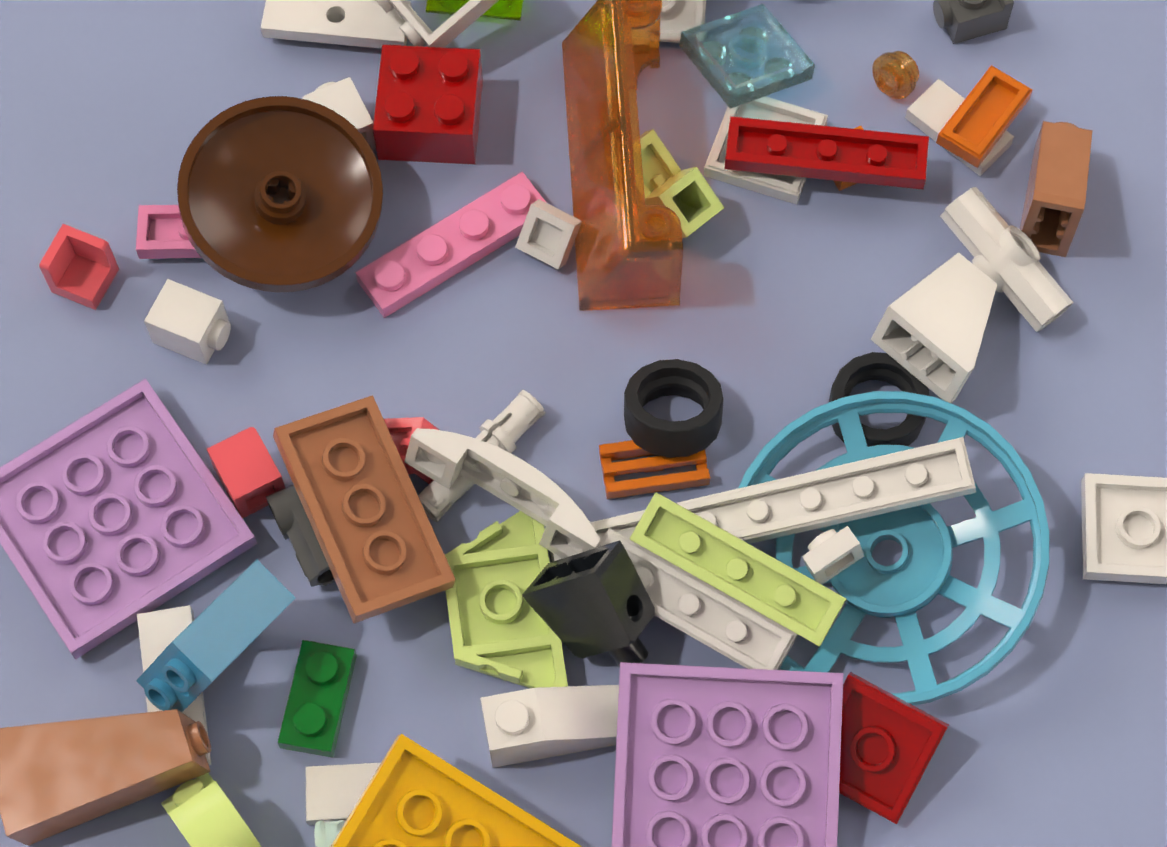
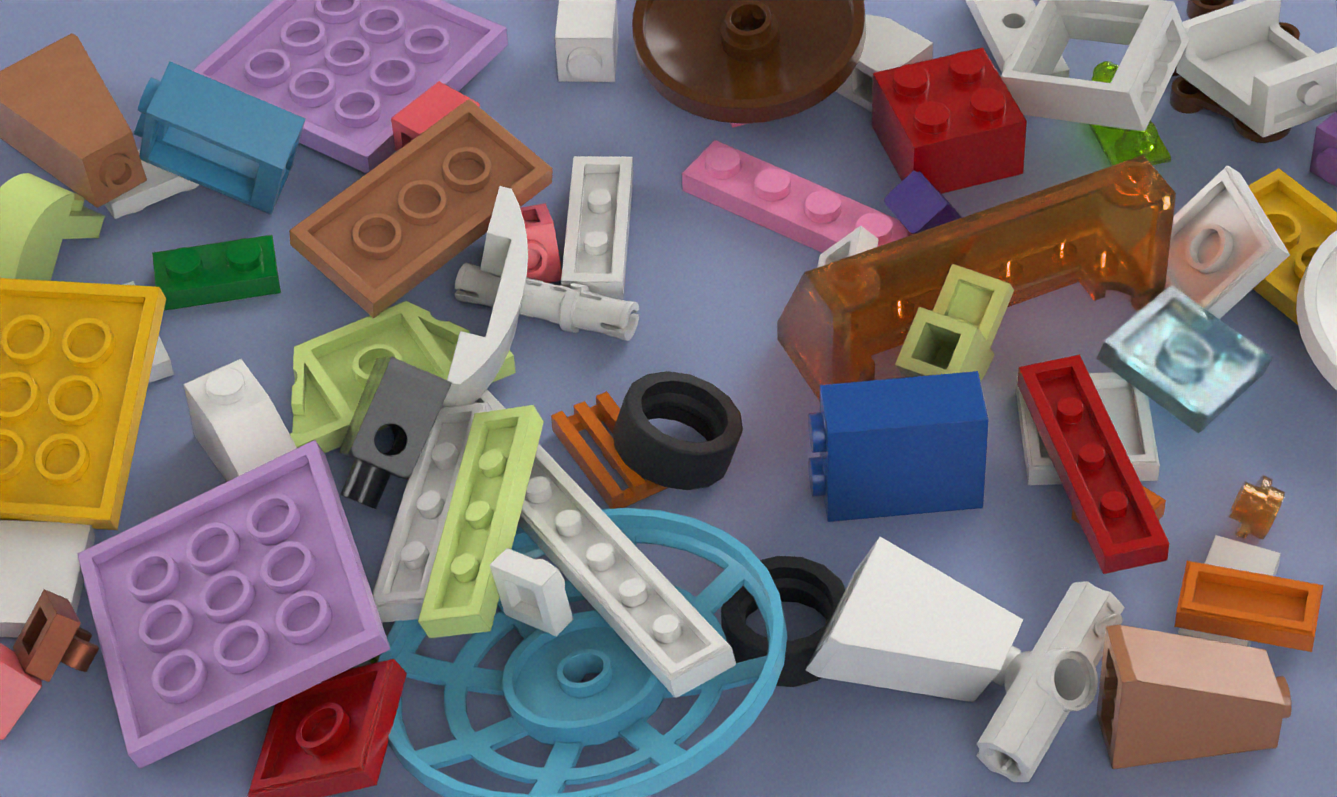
camera: 70 degrees right, 20 degrees down
(413, 389) = (598, 224): none -> white plate
(510, 158) = (919, 204): none -> dark purple slope
(770, 264) = (899, 446): none -> blue brick

